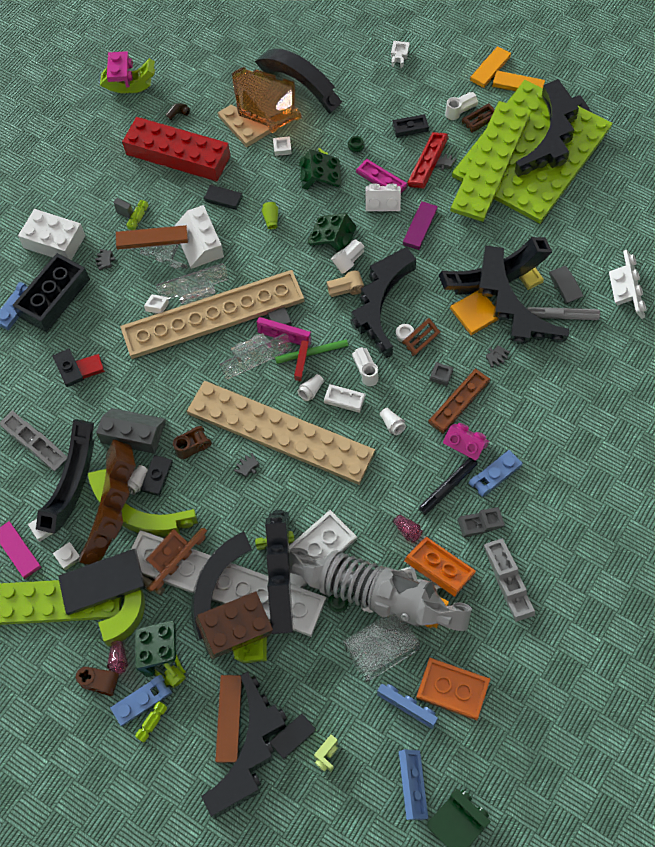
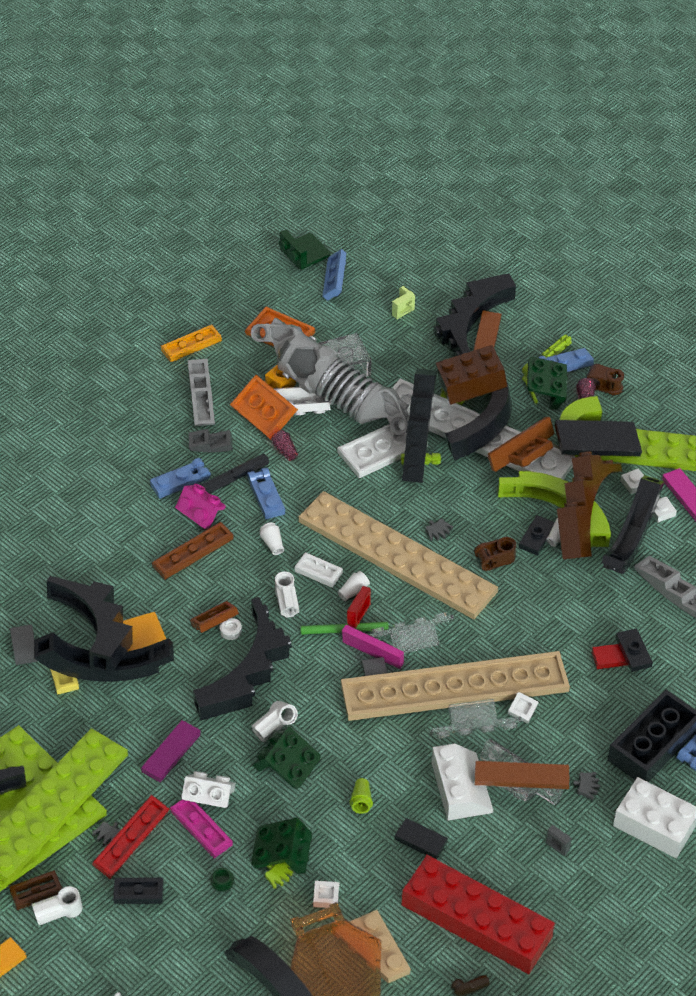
camera: 175 degrees left, 15 degrees down
(132, 428) = (562, 577): dark grey slope -> none
(137, 215) = (539, 834): lime axle -> none
(293, 736) = (426, 322): black tile -> none
(350, 283) = (281, 689): tan piece -> none
(407, 705) = (323, 319): medium blue plate -> none
(411, 472) = (266, 493): none -> medium blue plate
(441, 374) = (203, 579): dark grey tile -> none
(497, 355) = (134, 589): dark grey piece -> none
(541, 650) = (191, 343): none -> light orange tile
(565, 313) = (42, 615): light grey axle -> none

